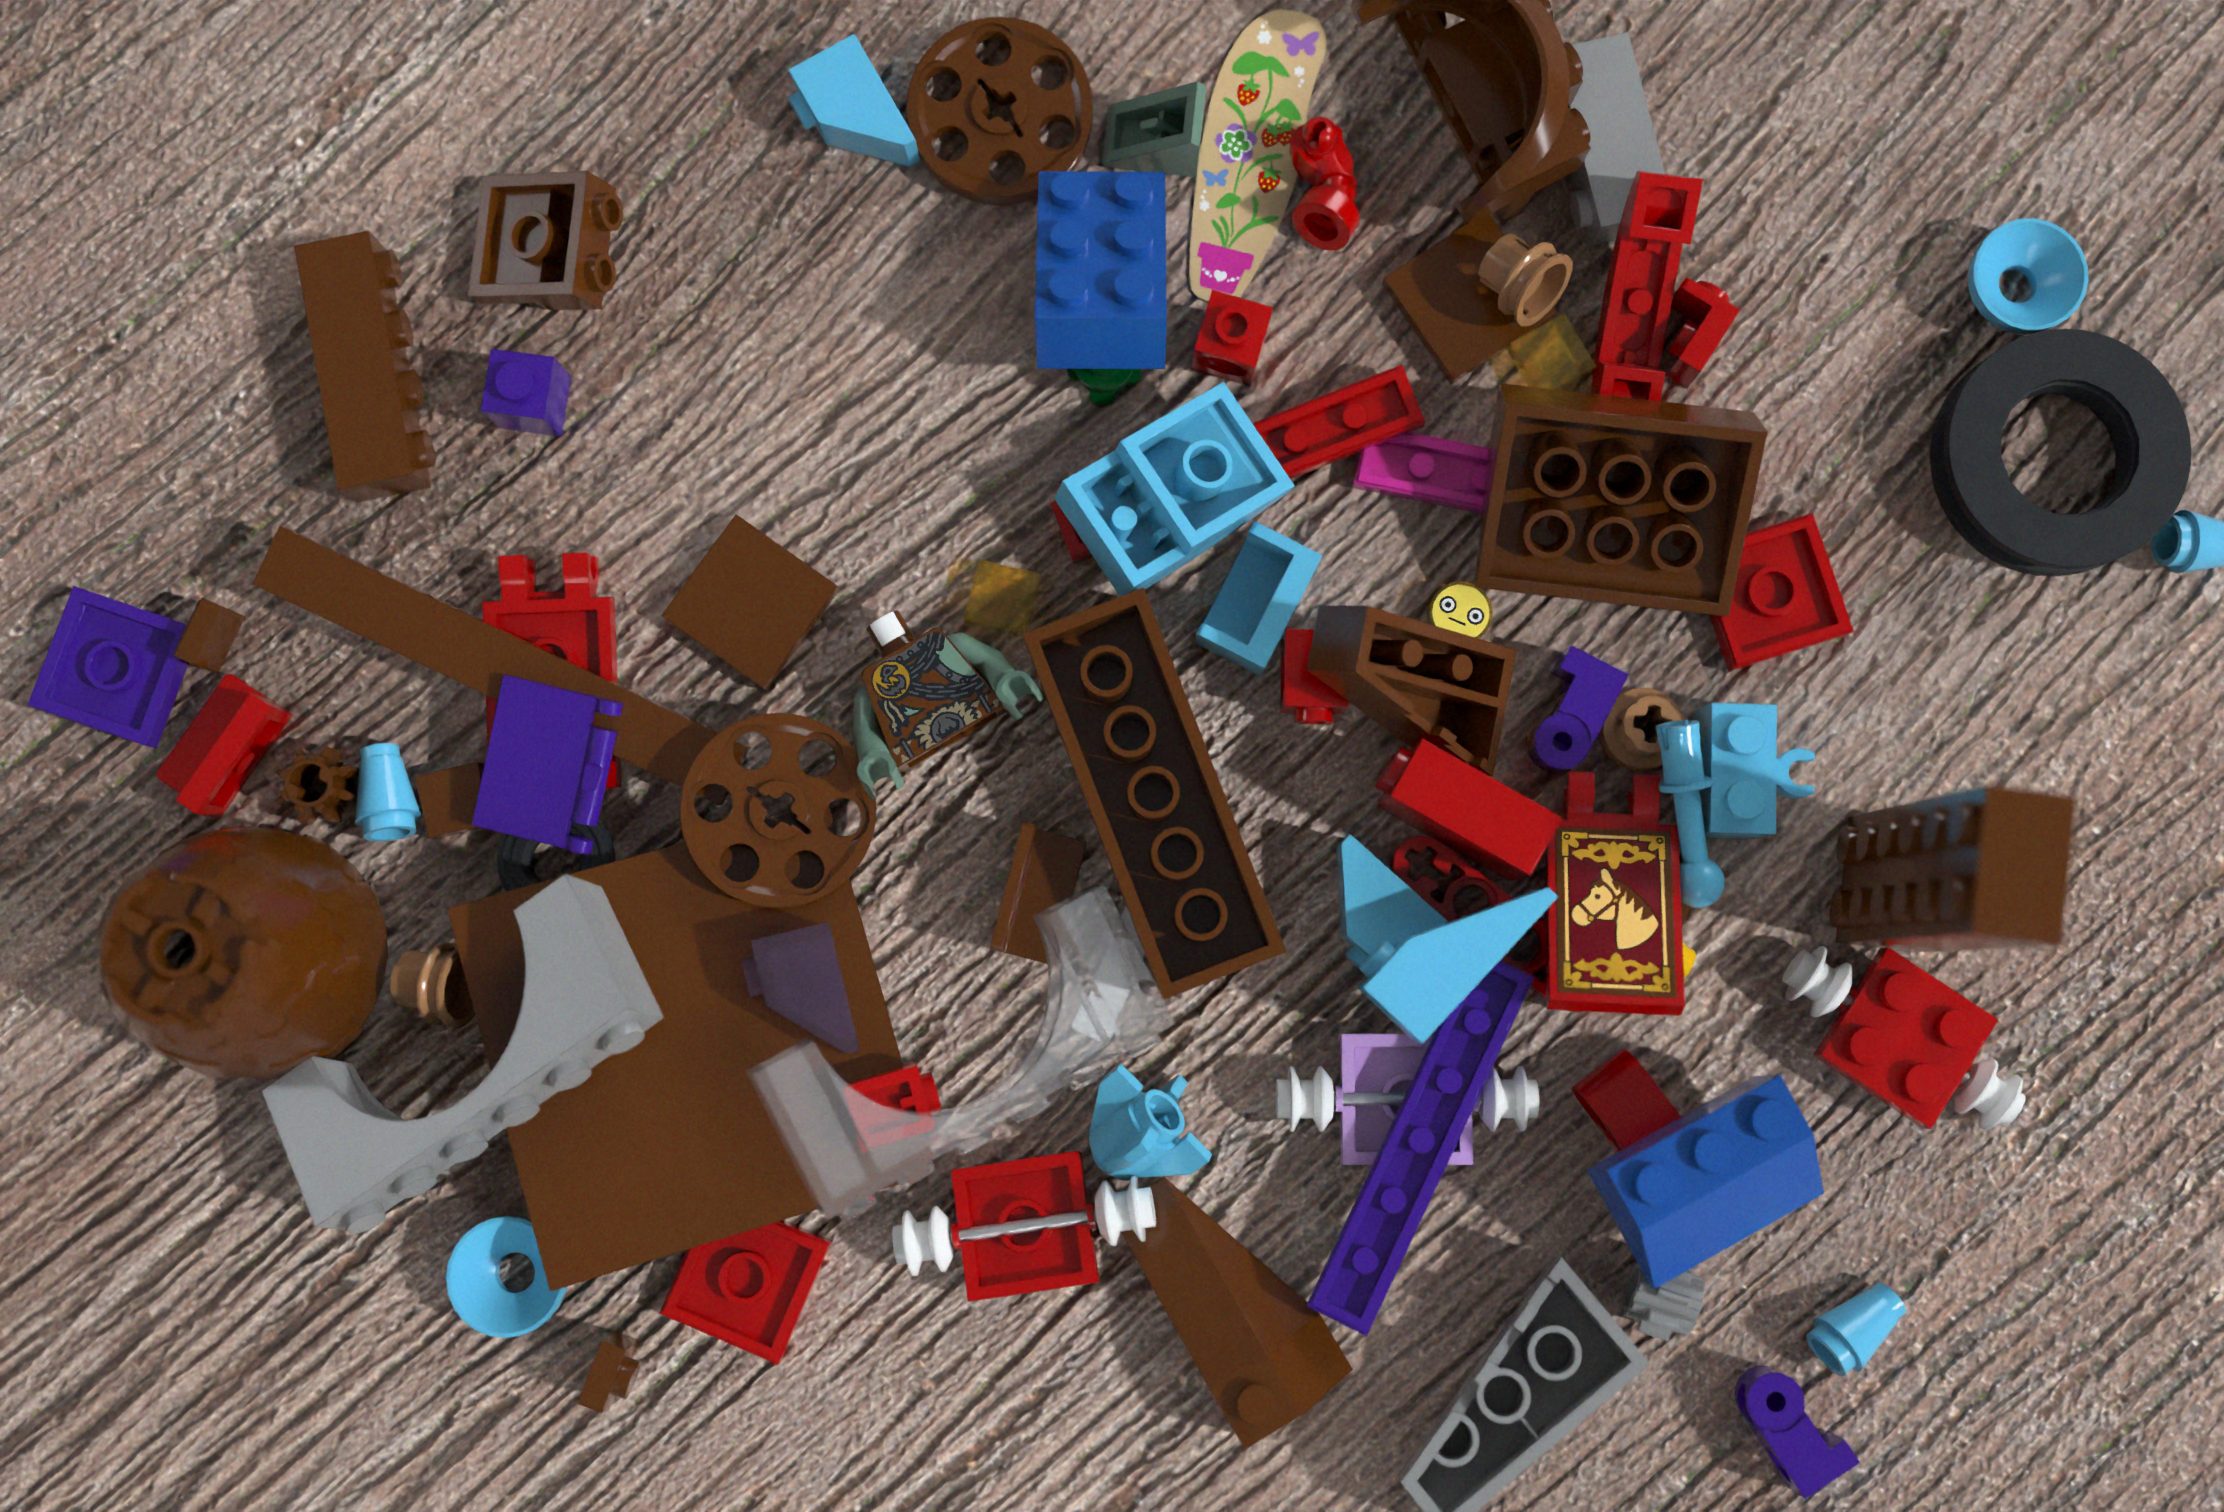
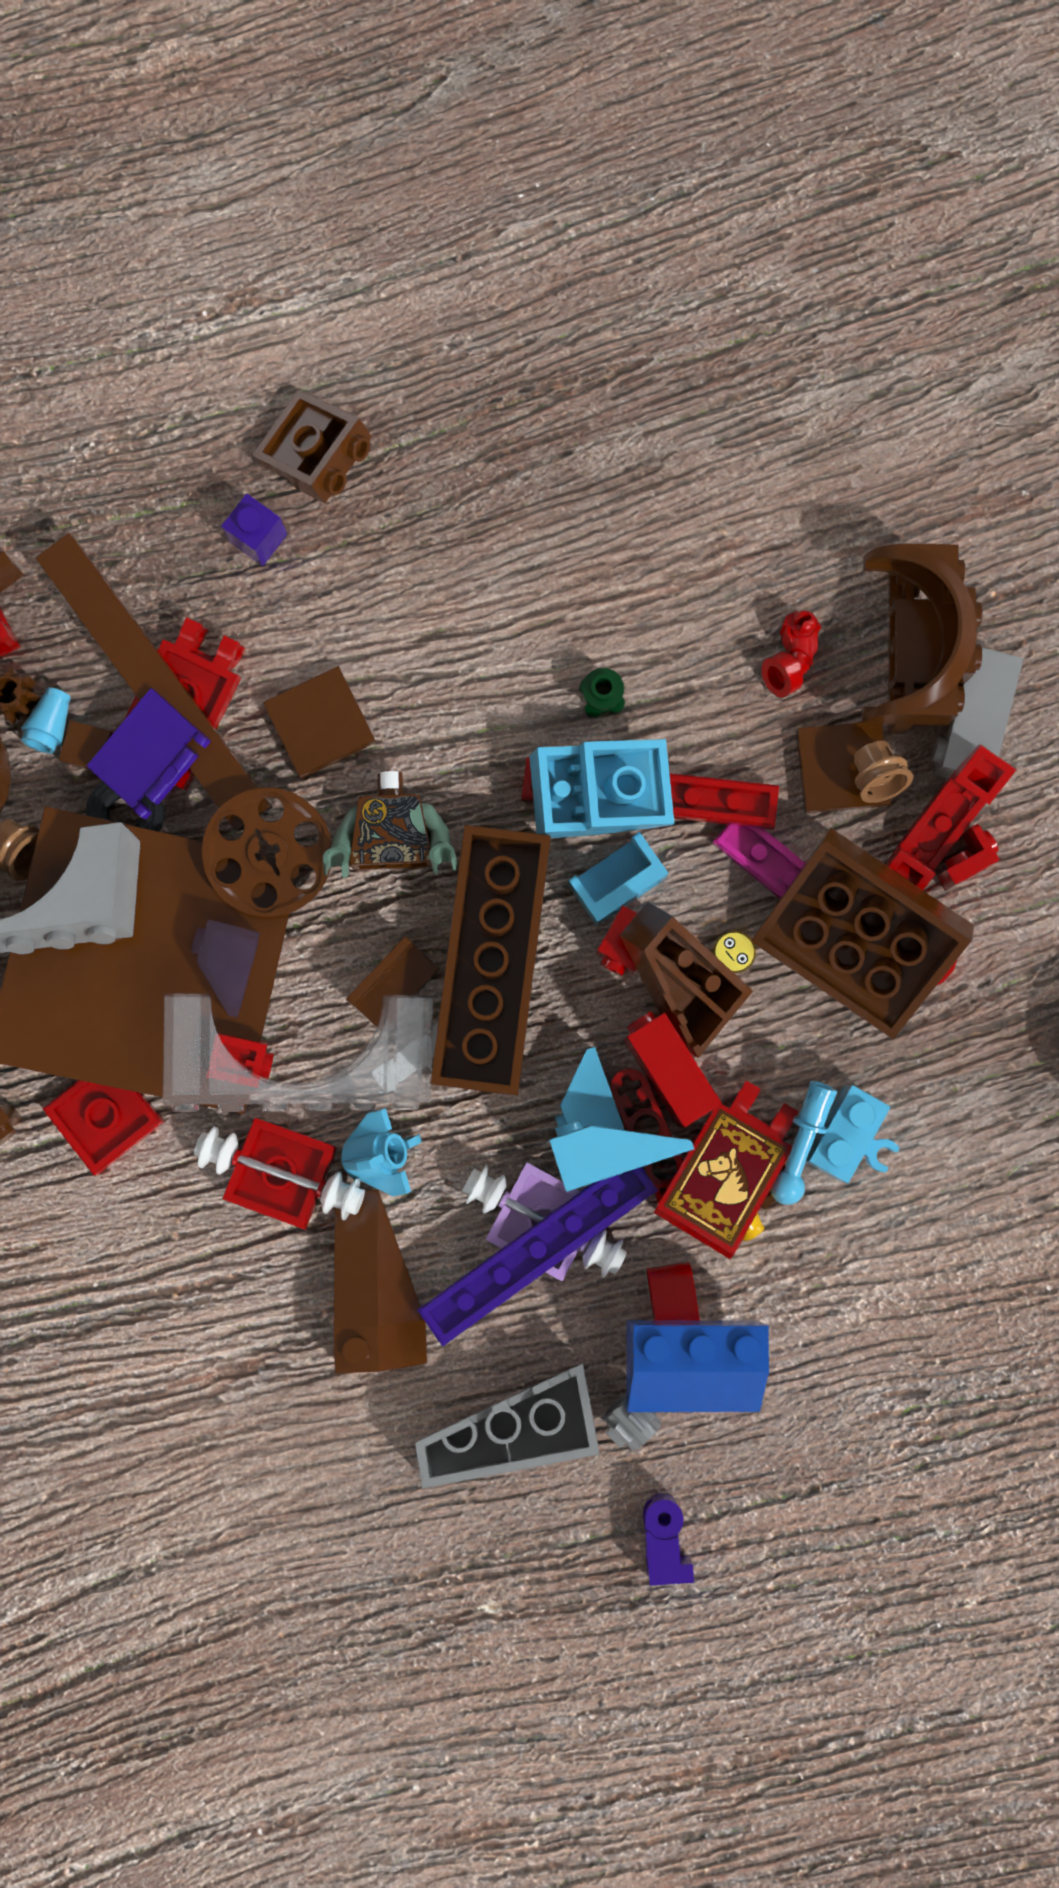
camera: 30 degrees right, 0 degrees up
(364, 366) = (169, 465): reddish brown brick -> none
(851, 104) = (536, 459): medium azure slope -> none
(1002, 598) = (468, 798): clear yellow tile -> none
(1005, 83) = (636, 494): reddish brown wedge -> none
(1101, 270) = (628, 634): blue brick -> none
(1156, 131) = (709, 570): sand green slope -> none
(1231, 337) = (686, 716): red brick -> none
(1245, 148) = (756, 609): tan sticker -> none
(1551, 355) = (873, 828): clear yellow tile -> none
(1578, 713) = (758, 1058): dark purple leg -> none
(1624, 742) = (790, 1081): medium nougat piece -> none
(1781, 596) = (933, 1044): red tile -> none
(1855, 1329) = (736, 1503): medium azure cone -> none
(1905, 1038) = (861, 1348): red plate -> none
(1956, 872) = (933, 1261): reddish brown brick -> none

